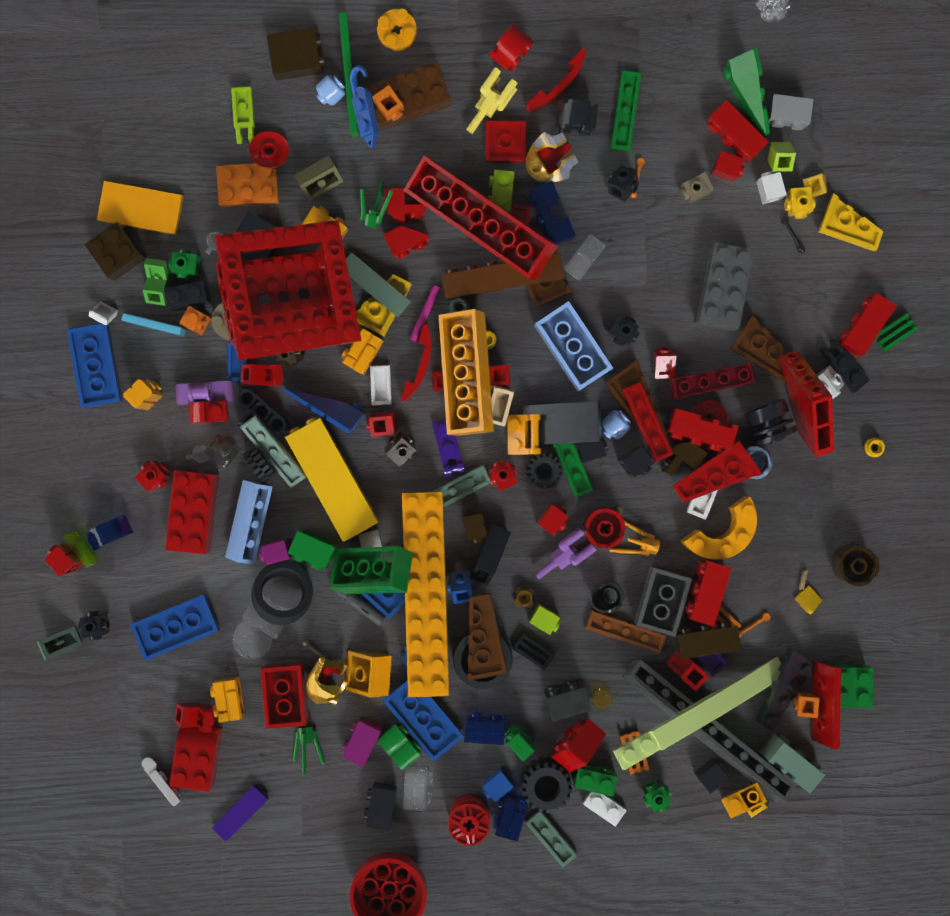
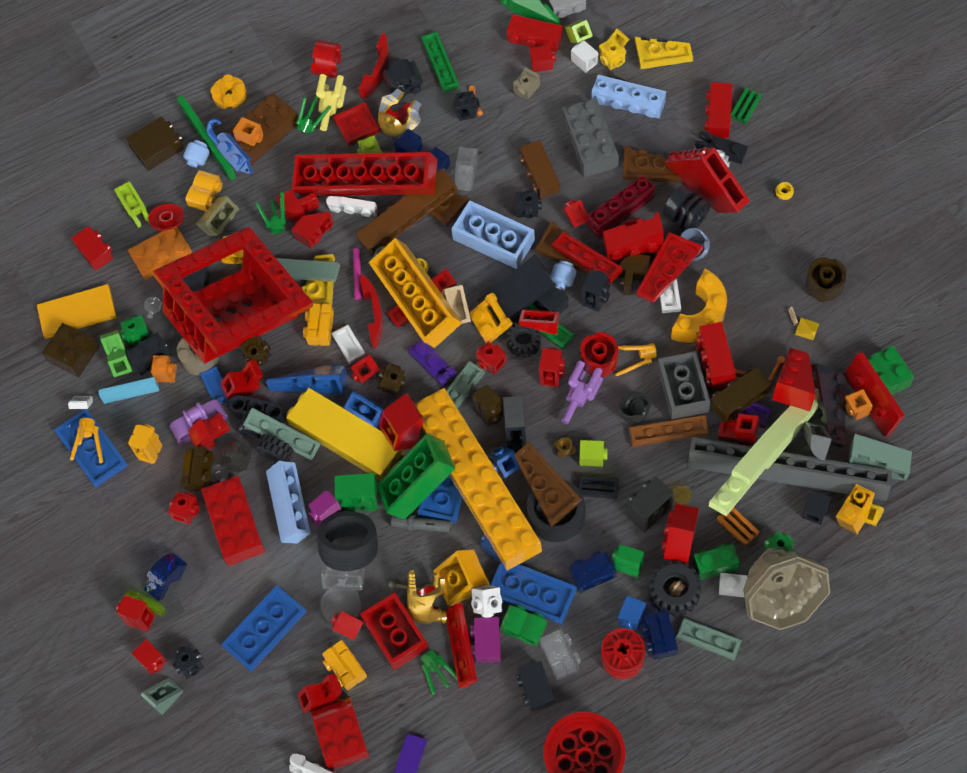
camera: 20 degrees left, 25 degrees down
(63, 602) = (149, 657): none -> red brick
(95, 349) = (86, 429): none -> light orange plant
(181, 147) = (92, 247): none -> red brick
(181, 443) = (197, 469): none -> dark brown brick
(246, 666) = (346, 624): none -> red brick
(319, 138) = (203, 191): none -> light orange brick
(336, 735) = (460, 646): none -> red tile
(363, 469) = (364, 408): none -> blue brick
(377, 712) = (486, 600): none -> white brick
(385, 507) = (401, 423): none -> red slope
(453, 236) = (352, 206): none -> white hinge
(454, 114) = (305, 124): none -> green plant
(548, 784) = (677, 588): none -> light nougat plate
(577, 463) = (545, 320): none -> red slope
(638, 840) = (785, 588): none -> dark tan rock
(655, 295) = (539, 169): none -> reddish brown brick
(749, 723) = (817, 439): none -> dark grey brick
(764, 655) = (795, 381): none -> red wedge
(788, 260) = (629, 96): none -> light blue brick

